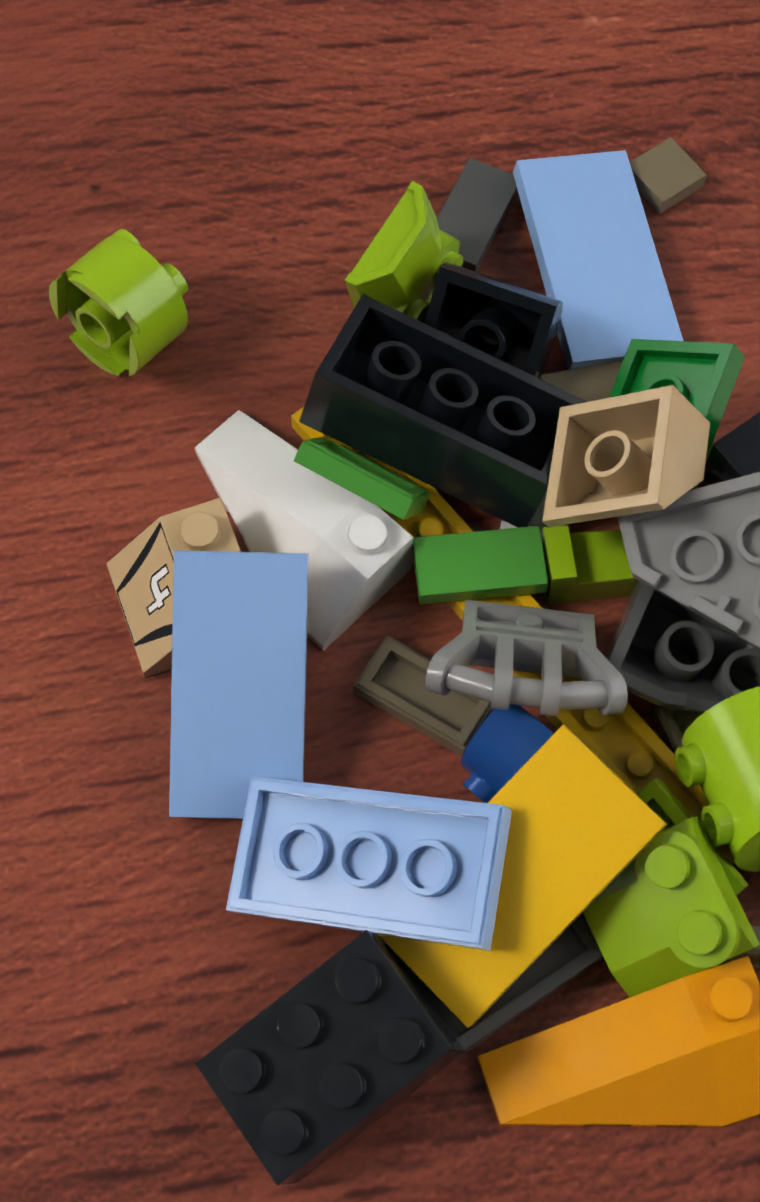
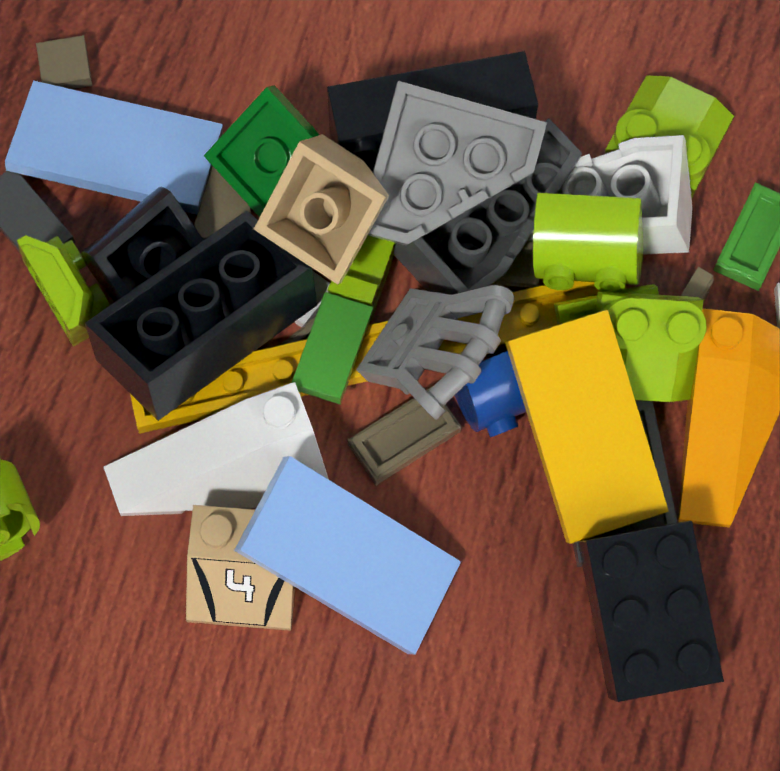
camera: 65 degrees left, 5 degrees up
(362, 477) = (226, 395): bright green tile -> none
(371, 861) = (528, 523): light blue tile -> none

